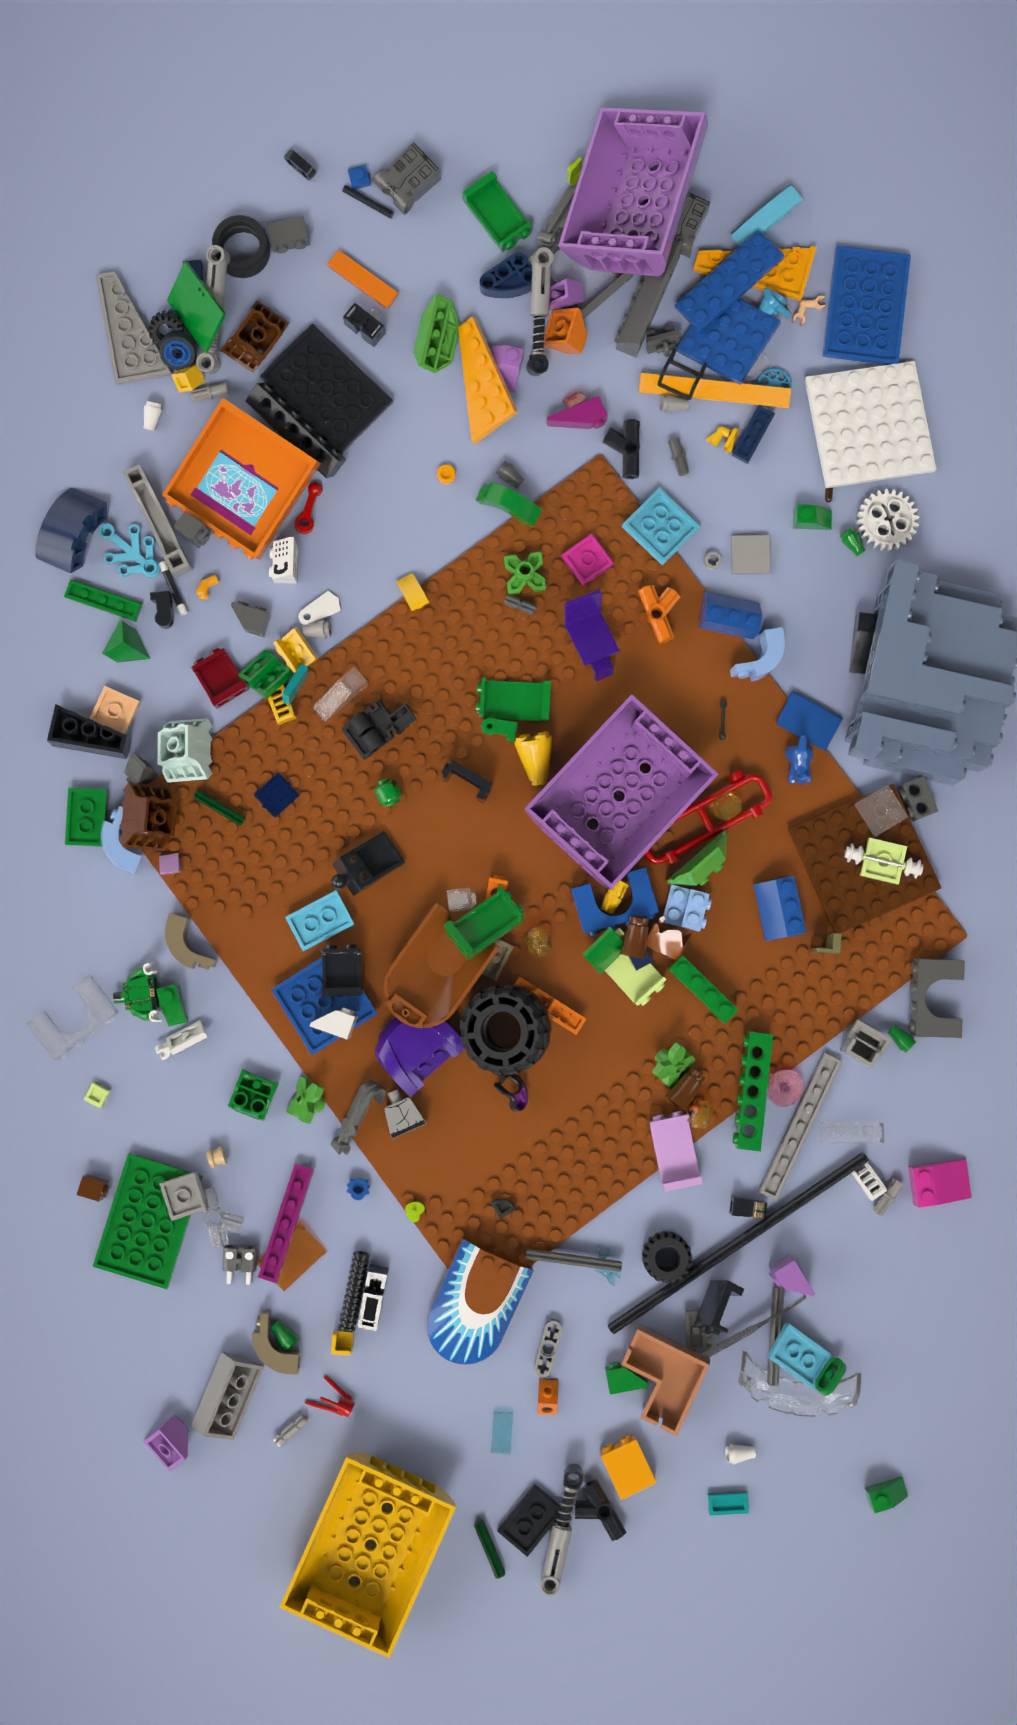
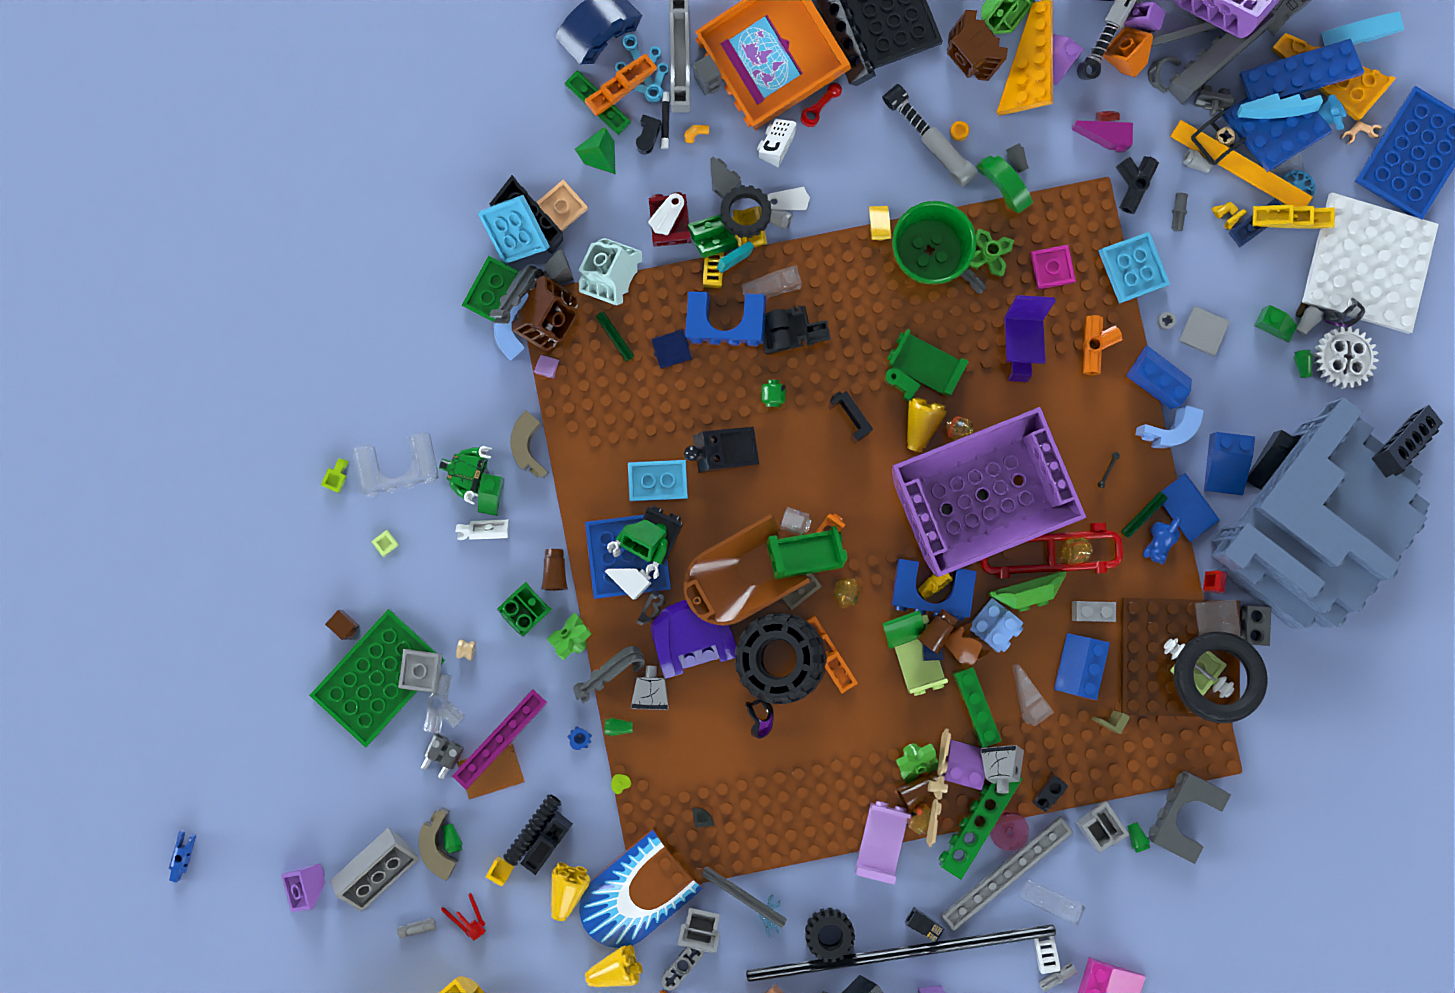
camera: 30 degrees right, 0 degrees up
(22, 1058) = (334, 478): none -> lime plate
(47, 1477) = (179, 865): none -> blue hinge
(80, 753) = (513, 229): none -> medium azure plate
(112, 795) = (524, 280): none -> dark grey piece
(116, 575) = (621, 84): none -> orange slope
(214, 675) = (666, 215): none -> white piece
(264, 1047) = (554, 571): none -> reddish brown plant
(271, 625) = (745, 230): none -> black tyre
(332, 981) = (643, 540): none -> green torso
(339, 746) = (749, 331): none -> blue arch
(364, 1050) = (643, 617): none -> dark grey helmet
(387, 1161) = (617, 727): none -> green cone
(410, 1329) = (566, 889): none -> yellow cone
(424, 392) = (975, 47): none -> reddish brown slope
(463, 509) = (960, 170): none -> piece
(468, 572) = (941, 228): none -> green piece
(489, 1380) = (616, 969): none -> yellow cone
(548, 1309) = (700, 931): none -> light grey plate
(570, 745) = (959, 428): none -> clear yellow head
(597, 335) = (1156, 66): none -> dark grey helmet
(691, 364) = (1230, 132): none -> tan bush
(701, 1078) = (938, 787): none -> tan piece
(717, 1046) = (965, 765): none -> medium lavender slope
(719, 324) = (1272, 107): none -> medium azure slope
(749, 961) = (1031, 702): none -> clear slope
(749, 1031) = (1002, 765): none -> light grey torso
(767, 854) = (1093, 611): none -> light grey brick
(773, 745) = (1144, 515): none -> dark green axle
(782, 415) = (1293, 217): none -> yellow slope
(803, 1035) = (1049, 792): none -> black leg
(827, 663) = (1228, 462): none -> blue slope
(839, 501) = (1309, 319): none -> light grey cone
(860, 489) = (1332, 318): none -> black piece
(863, 777) = (1215, 582): none -> red slope
(905, 894) = (1248, 656): none -> black tyre
(974, 572) = (1407, 442): none -> black brick

